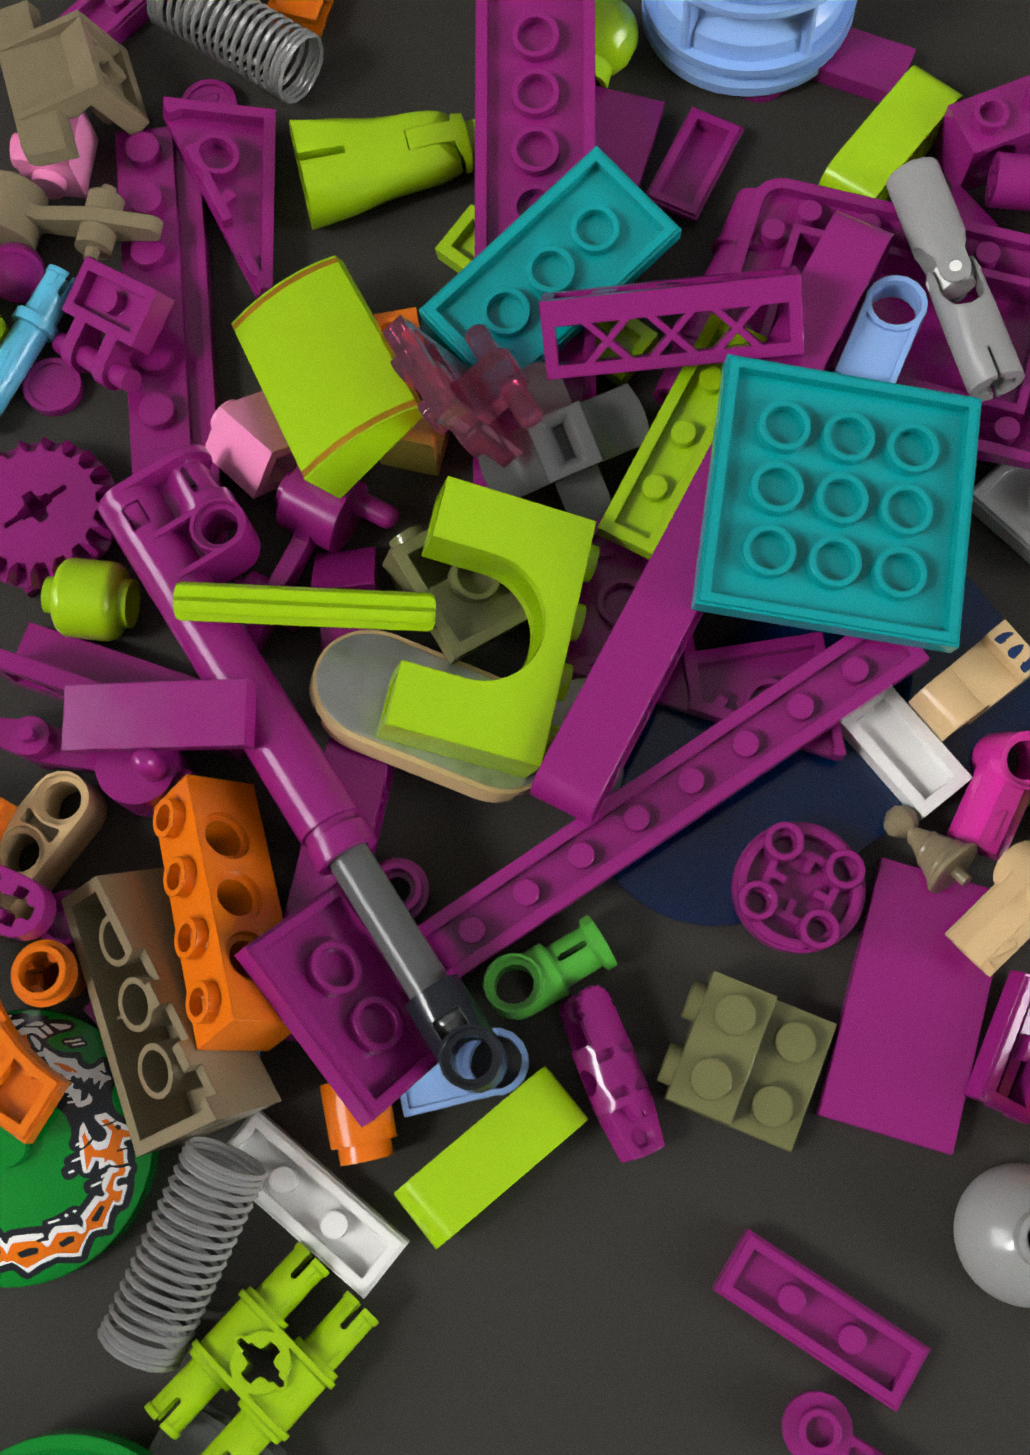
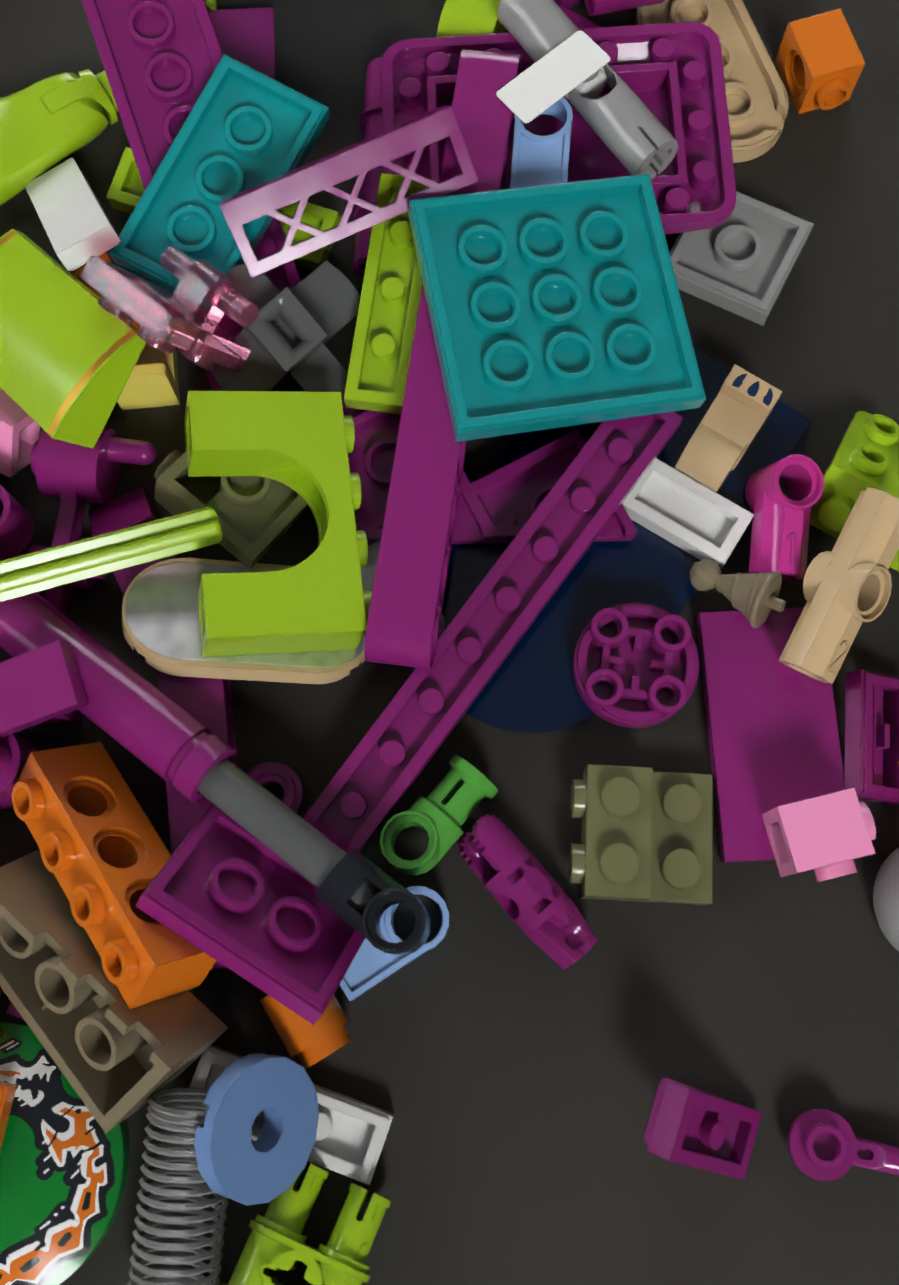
camera: 25 degrees left, 0 degrees up
(291, 1236) = (224, 1145): none -> medium blue tile
(395, 258) = (71, 215): none -> white tile
(490, 1157) = (442, 1009): lime beam -> none
(694, 164) = (319, 53): magenta tile -> none
(702, 1368) = (701, 1129): none -> magenta slope
(821, 1319) = (790, 1044): magenta tile -> none
(919, 268) = (553, 76): none -> white sticker
(924, 1124) = (821, 834): none -> bright pink brick

